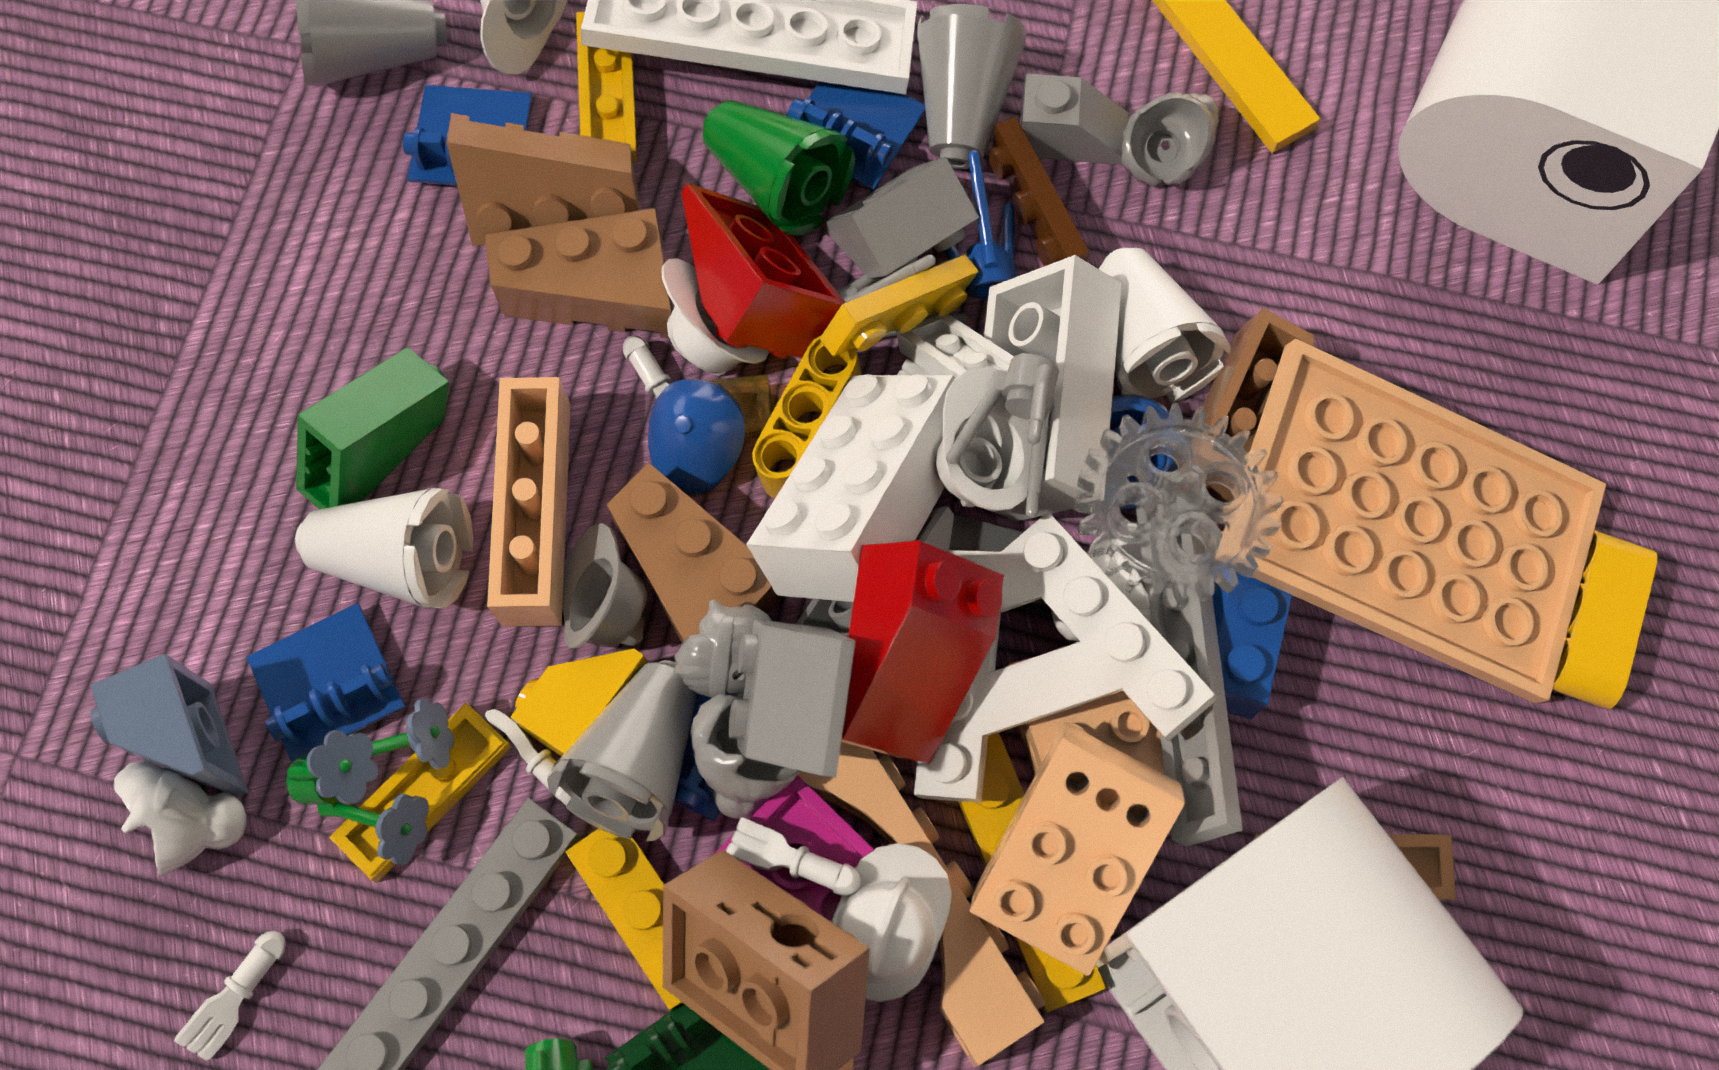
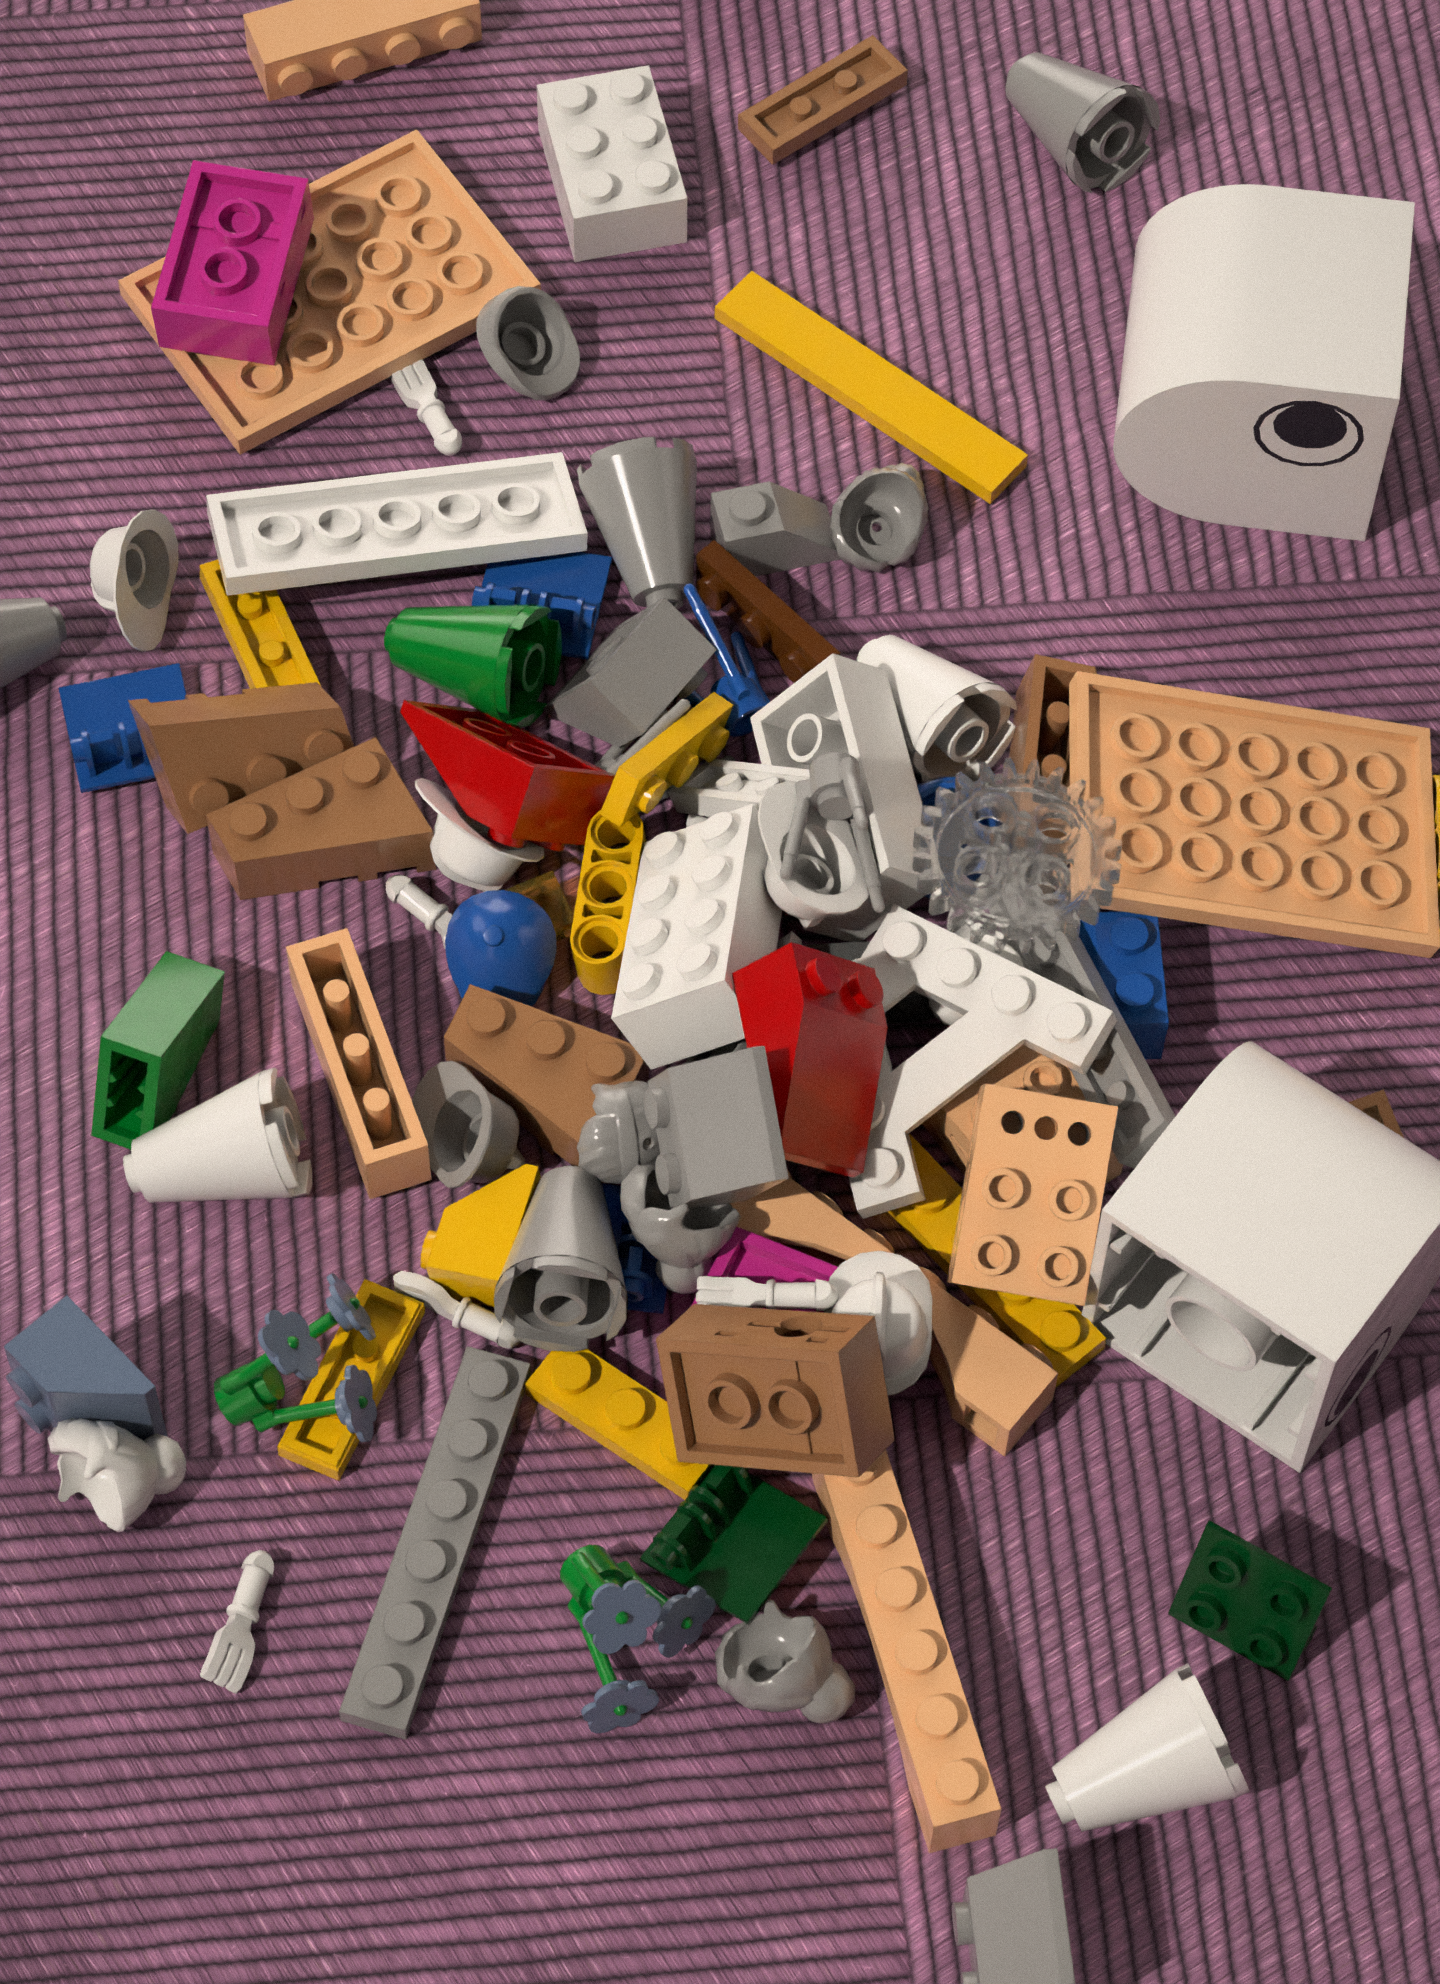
camera: 20 degrees left, 10 degrees down
(324, 681) = (207, 1305): blue hinge -> none

